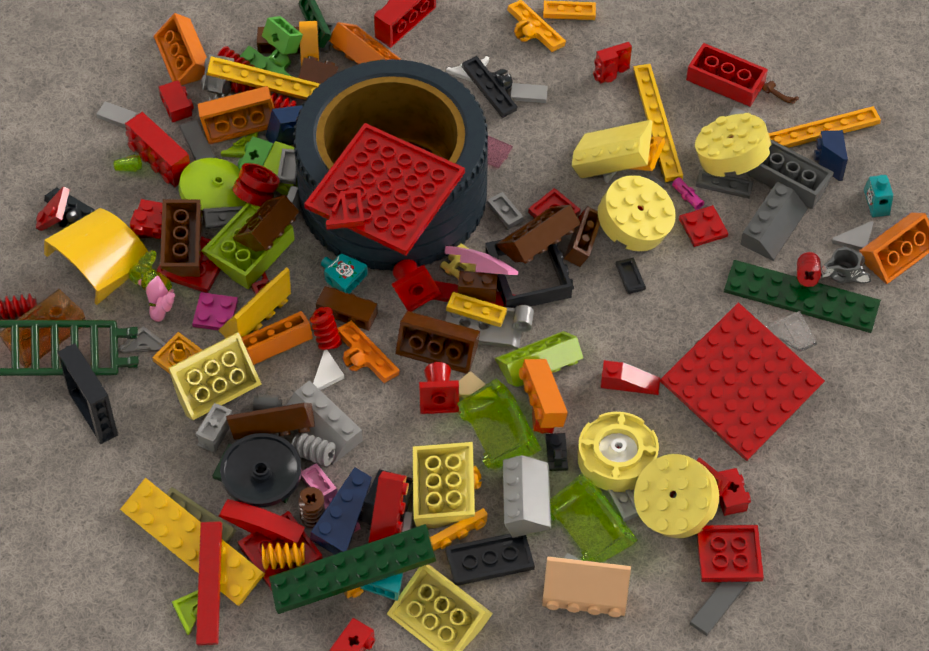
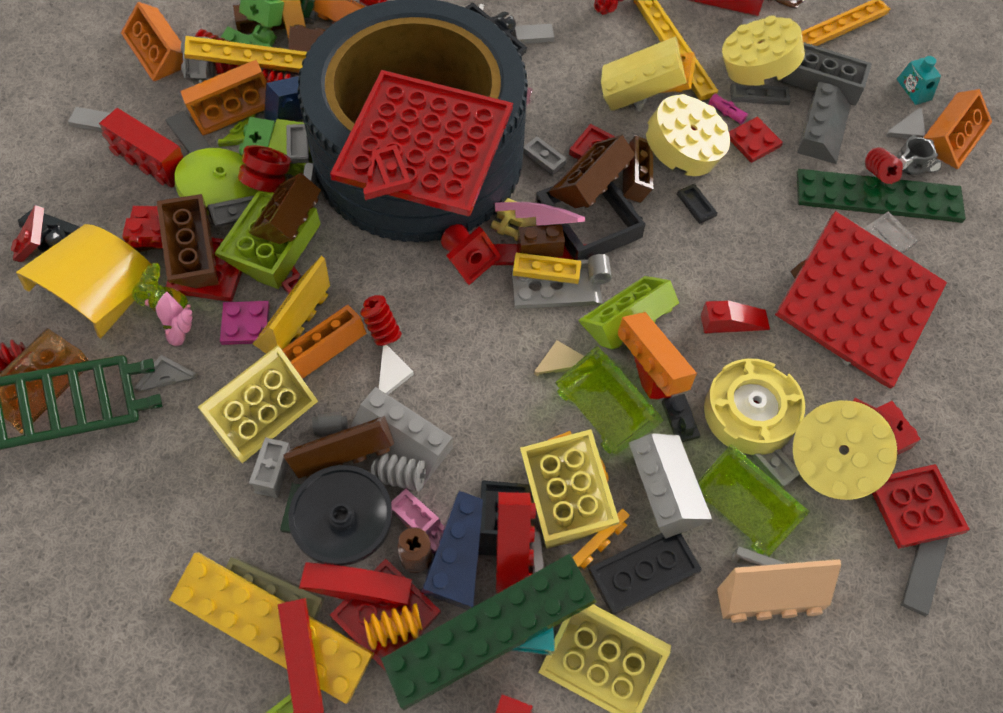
camera: 15 degrees left, 5 degrees up
(89, 393) = (98, 456): black window -> none
(129, 163) = (114, 169): clear neon green cone -> none
(175, 101) = (156, 94): red brick -> none
(175, 351) = (206, 380): light orange plate -> none
(344, 272) = (385, 252): teal torso -> none
(348, 307) = (400, 290): reddish brown brick -> none
(365, 353) = (431, 341): orange plate -> none
(437, 341) = (512, 313): reddish brown slope -> none
(438, 393) = (529, 374): red plant -> none
(832, 152) = (862, 42): dark blue slope -> none

